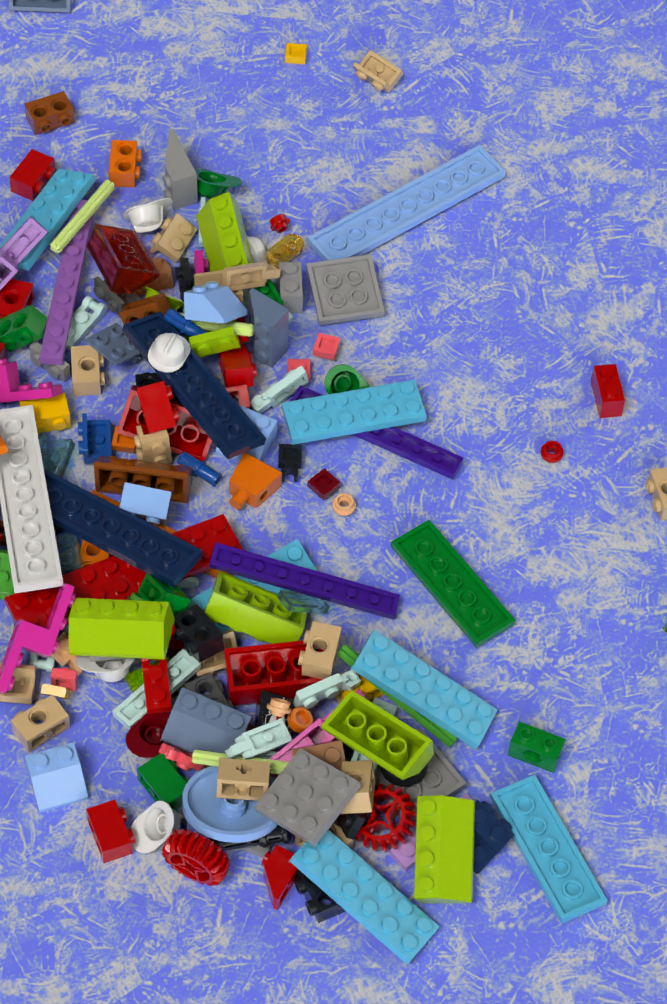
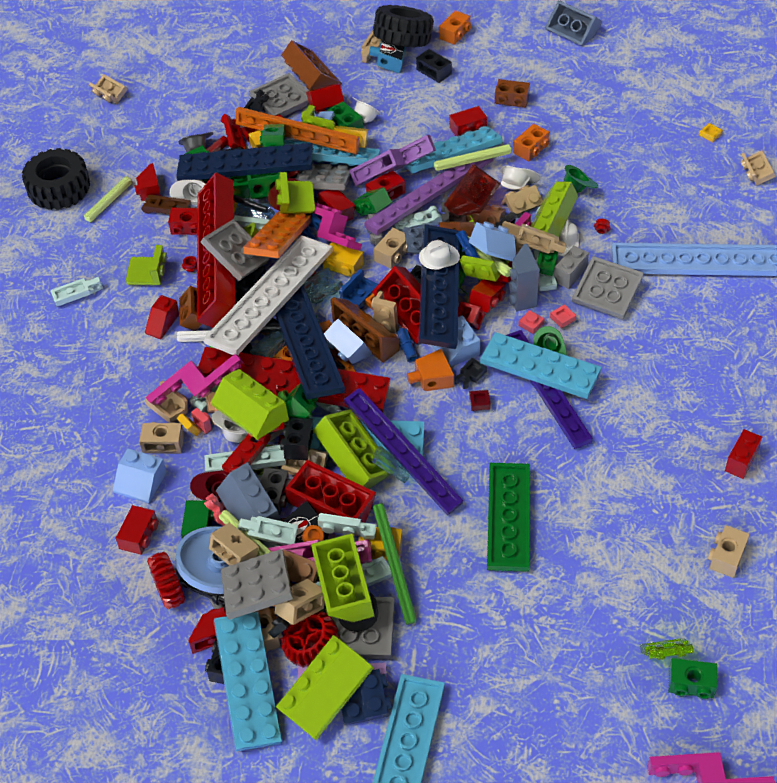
camera: 45 degrees right, 5 degrees down
(155, 826) = (164, 542): white piece -> none
(157, 407) = (400, 284): red brick -> none
(180, 174) = (555, 160): light grey slope -> none
(279, 707) = (303, 517): light nougat plate -> none
(280, 391) = (504, 325): light aqua hinge -> none
(282, 250) = (589, 243): clear yellow plate -> none
(323, 637) = (372, 492): tan brick -> none
(344, 499) = (482, 417): light nougat plate -> none
(424, 689) = (416, 571): medium azure plate -> none
(536, 747) = (463, 664): green brick -> none
(552, 446) = (662, 468): red plate -> none

